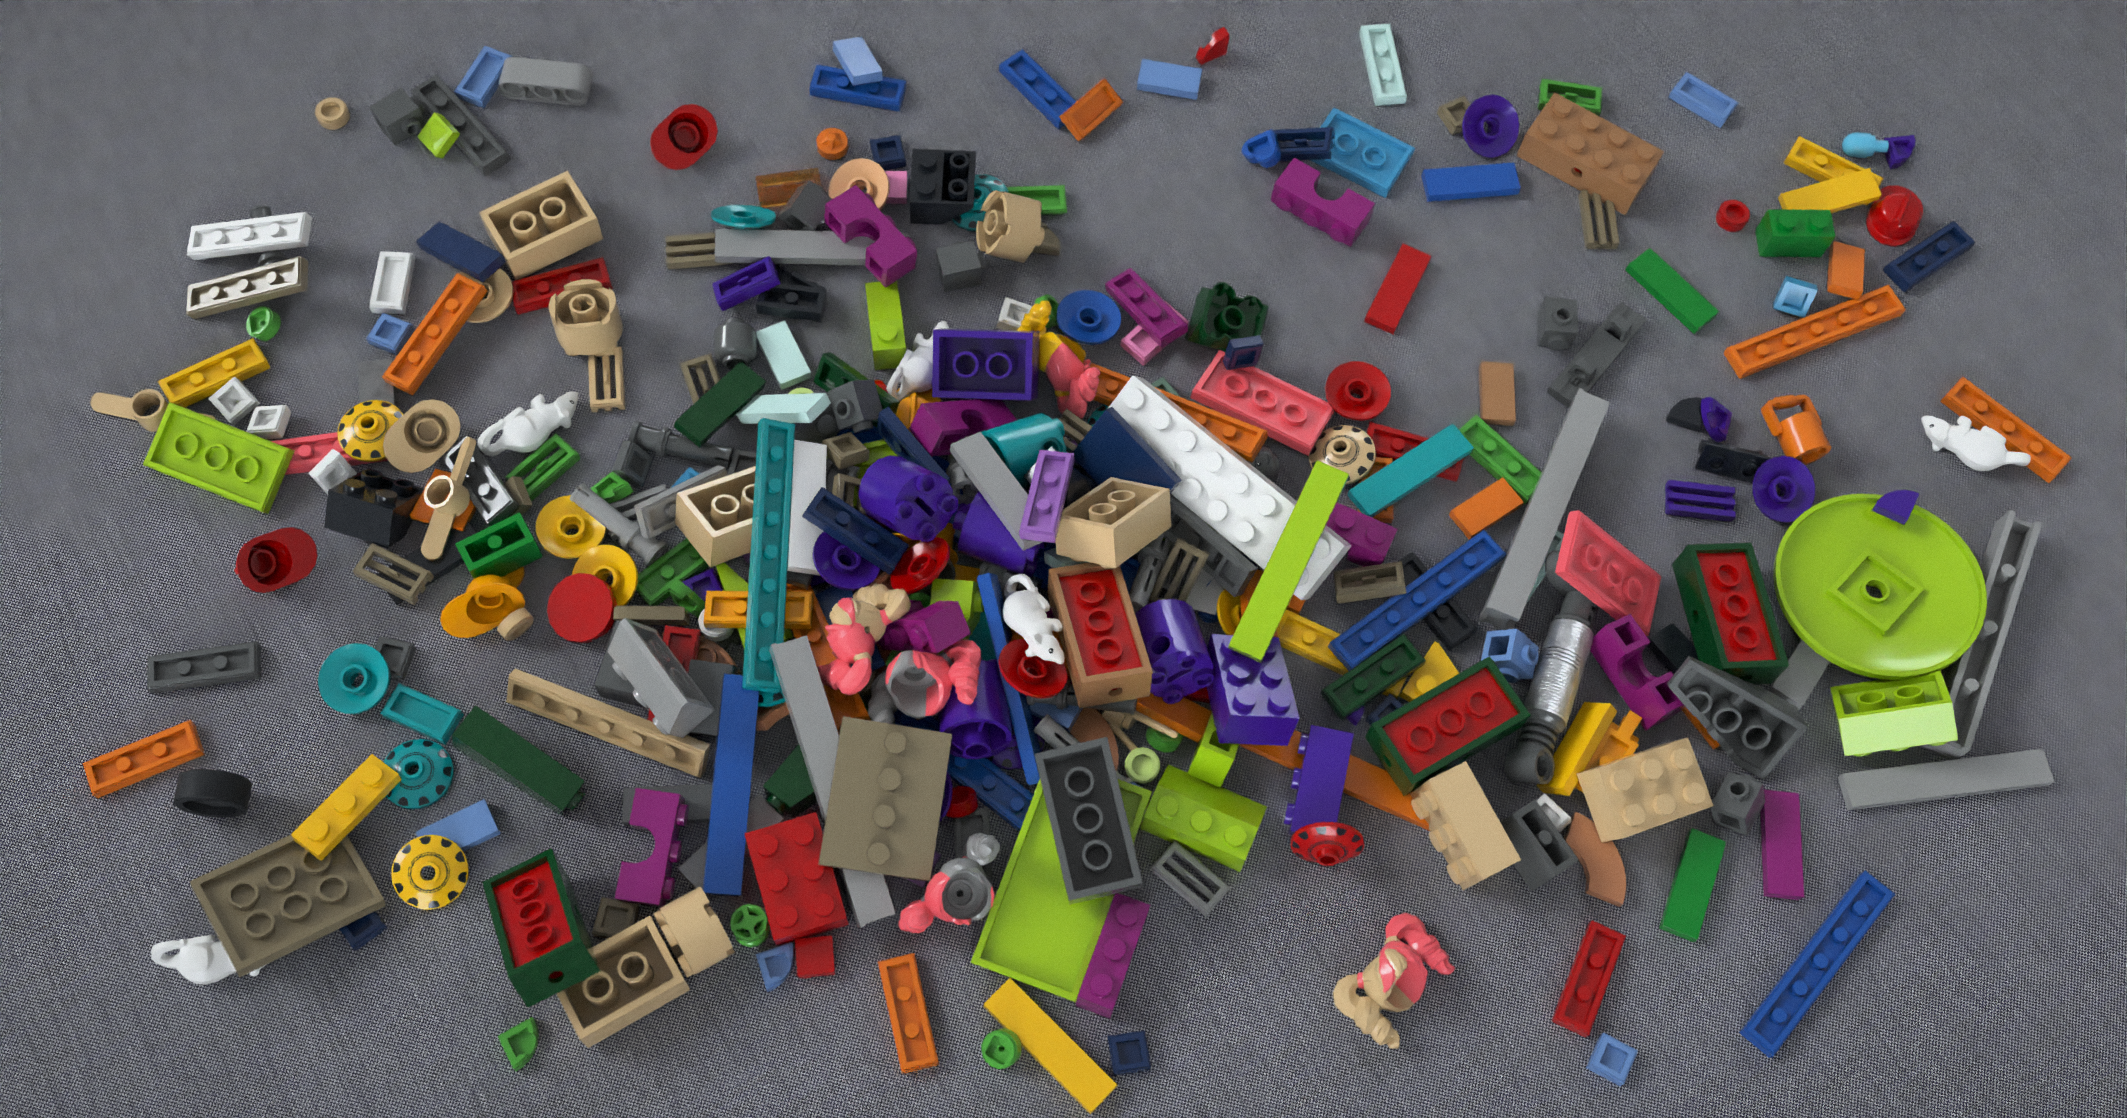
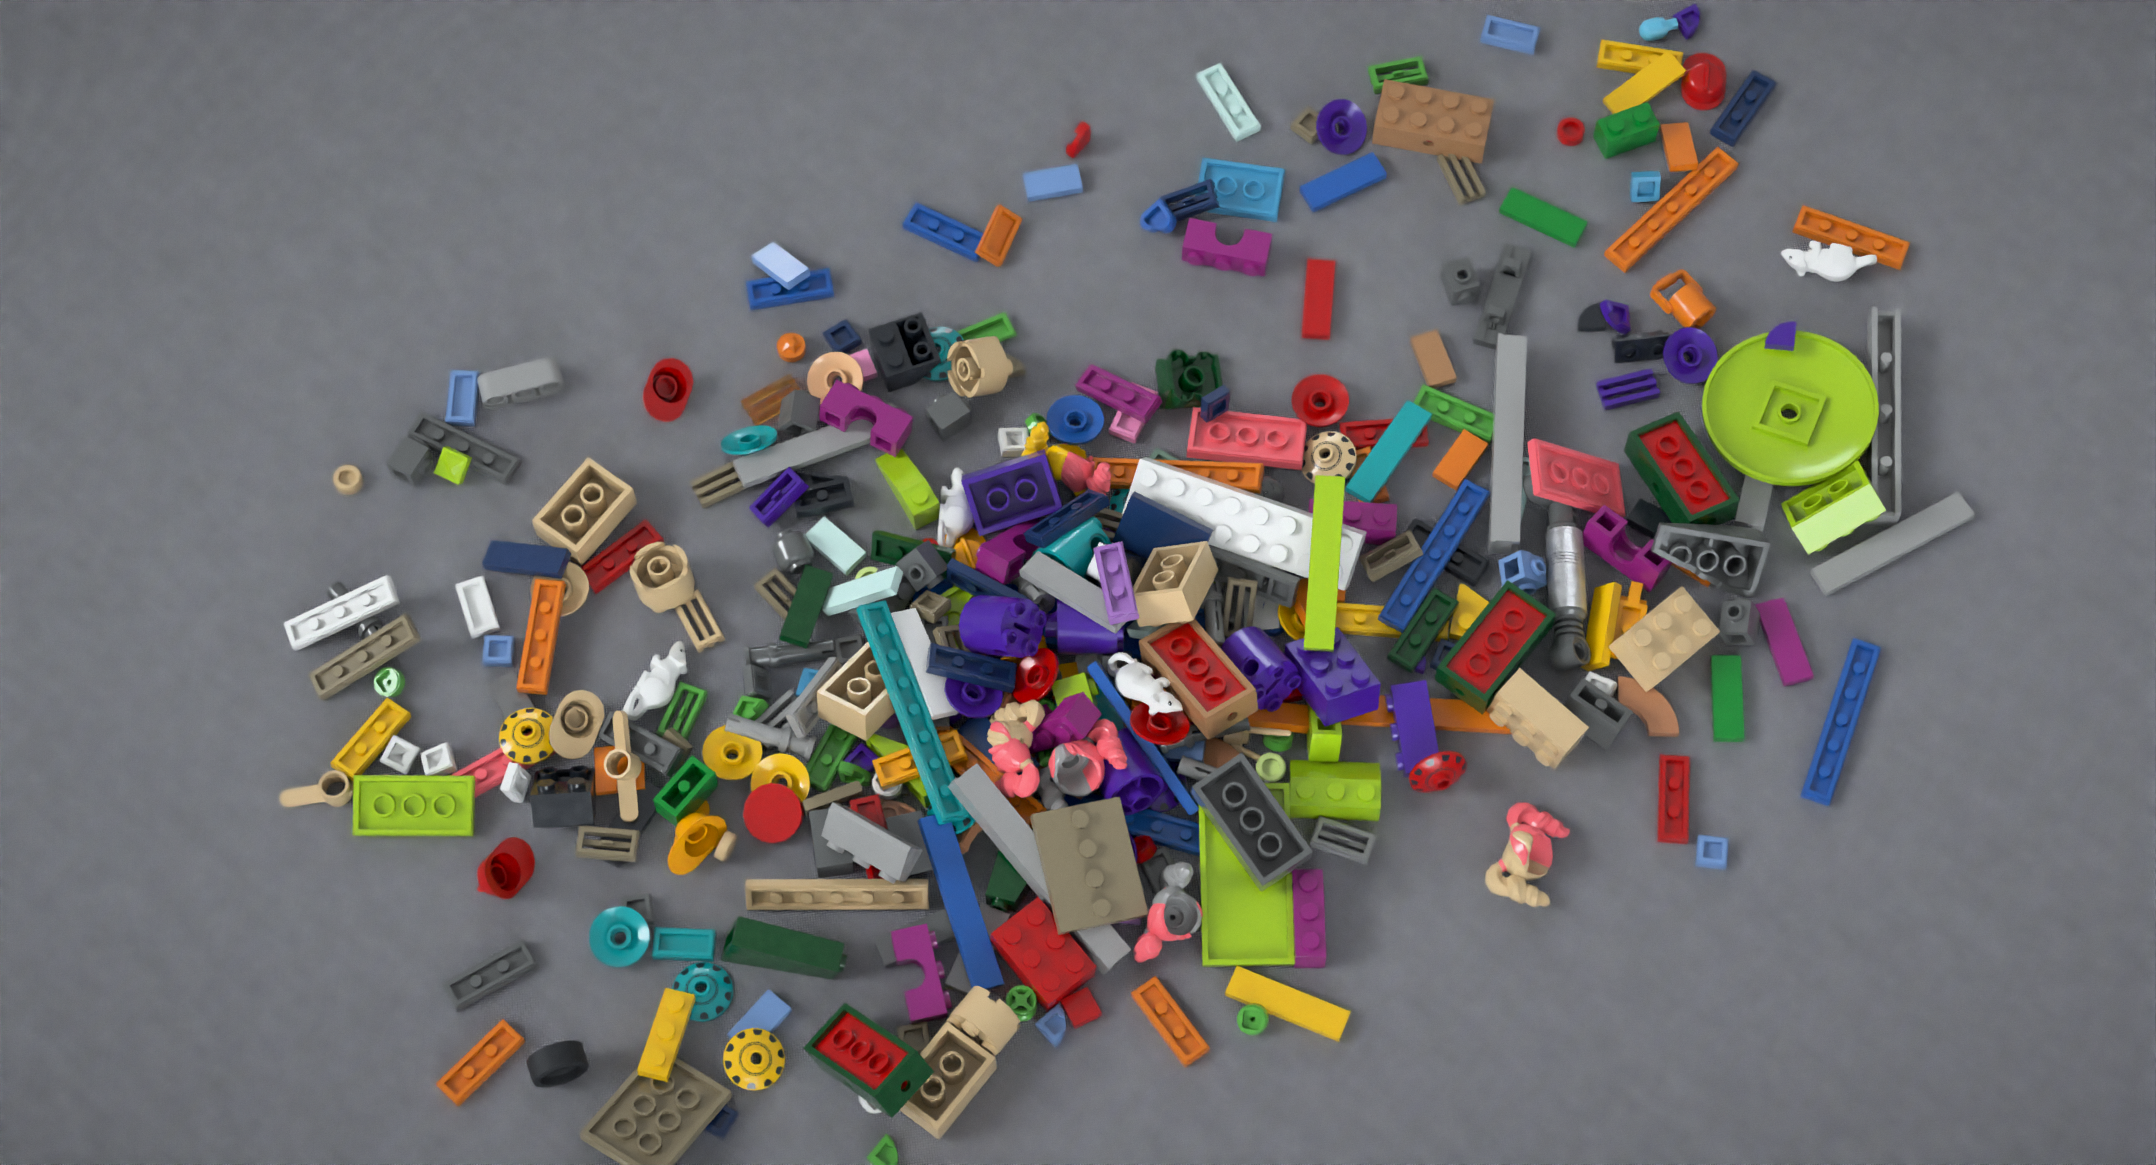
camera: 15 degrees left, 0 degrees up
(1029, 410) = (1066, 518): none -> dark blue tile
(1129, 1053) = (1349, 986): dark blue tile -> none

